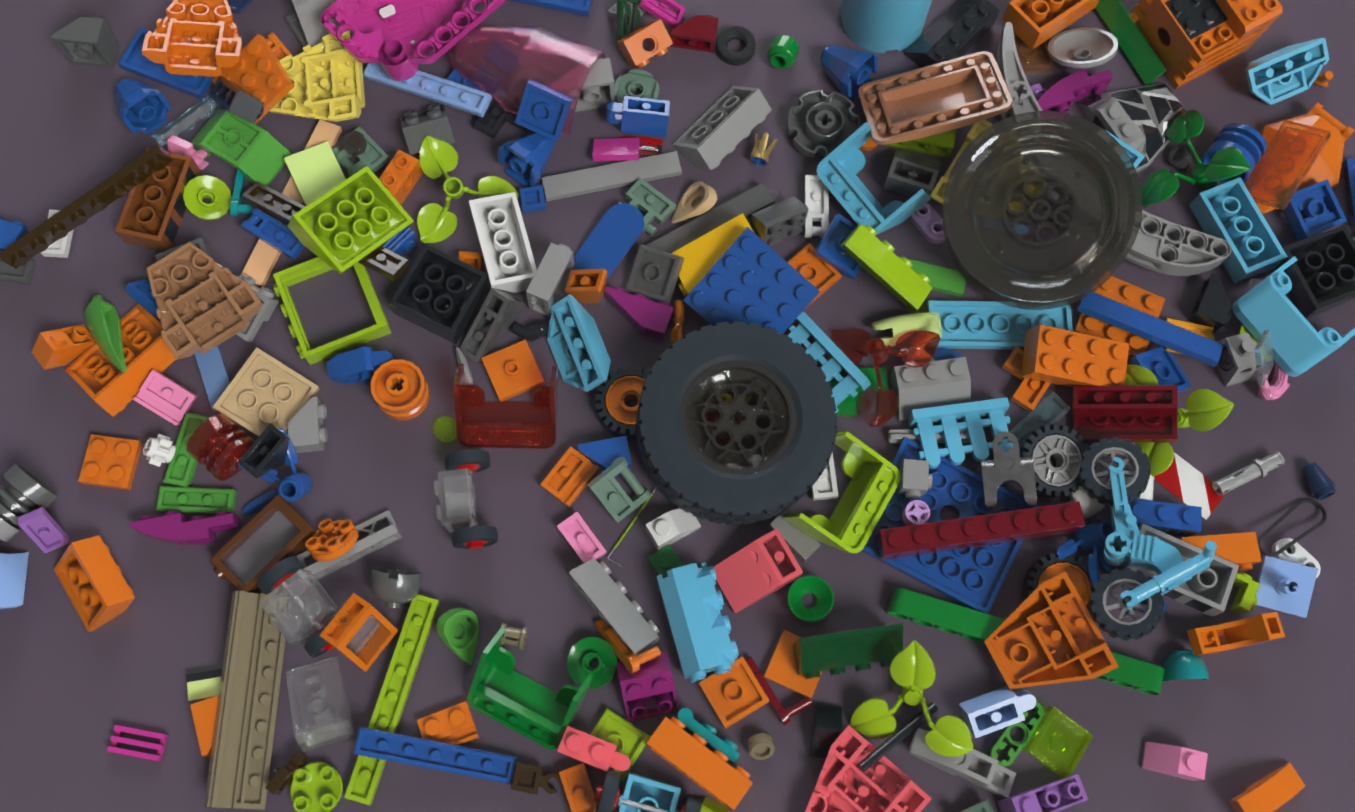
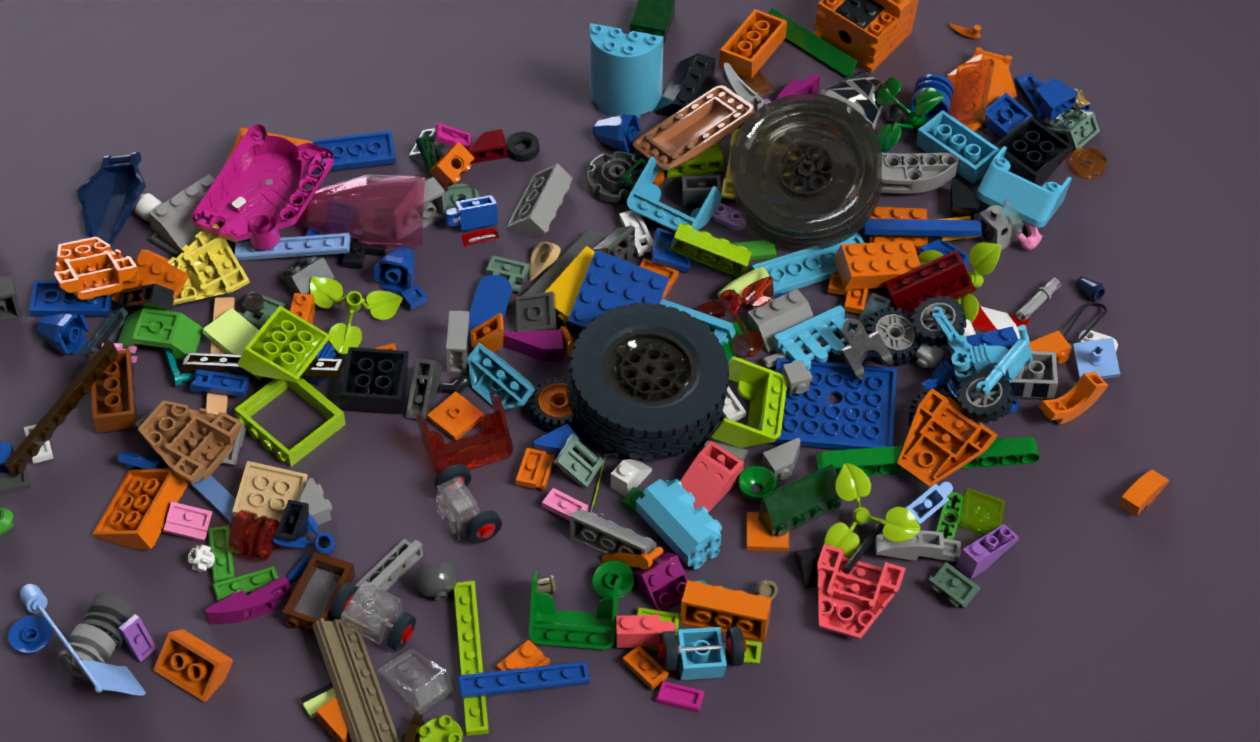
camera: 20 degrees left, 20 degrees down
(61, 345) = (83, 515): orange slope -> none
(106, 330) = (108, 489): bright green piece -> none
(110, 462) = (162, 583): orange plate -> none
(211, 188) = (151, 377): lime dish -> none
(332, 539) = (372, 567): orange tile -> none
(357, 365) = (334, 449): blue hinge -> none
(359, 632) = (429, 614): orange window -> none
(400, 389) = (375, 454): orange wheel -> none
(445, 429) = (422, 471): clear neon green tile -> none
(458, 633) = (502, 595): bright green piece -> none
(467, 372) = (417, 440): light grey bar -> none
(503, 242) = (411, 327): white slope -> none
(528, 779) = (603, 672): dark brown plate -> none
(543, 110) = (399, 227): blue plate -> none
(611, 176) = (468, 263): light grey tile -> none
(616, 149) = (464, 243): dark pink tile -> none
(734, 693) = (730, 564): orange plate -> none
(758, 154) = (578, 211): pearl gold piece -> none
(783, 52) = (562, 138): green head -> none
(783, 714) = (770, 564): dark red piece -> none
(831, 141) = (630, 182): none -> dark green tile
(852, 577) = (782, 459): none -> light grey slope
(917, 509) = (812, 397): lavender wheel -> none
(979, 530) = (859, 394): dark red brick -> none
(1082, 48) = (789, 65): light grey dish -> none
(1174, 761) = (1070, 494): bright pink slope -> none
(1184, 665) = (1047, 430): teal helmet -> none
(1246, 595) = (1068, 369): lime bracket -> none
(1287, 70) = (946, 34): medium azure wedge -> none

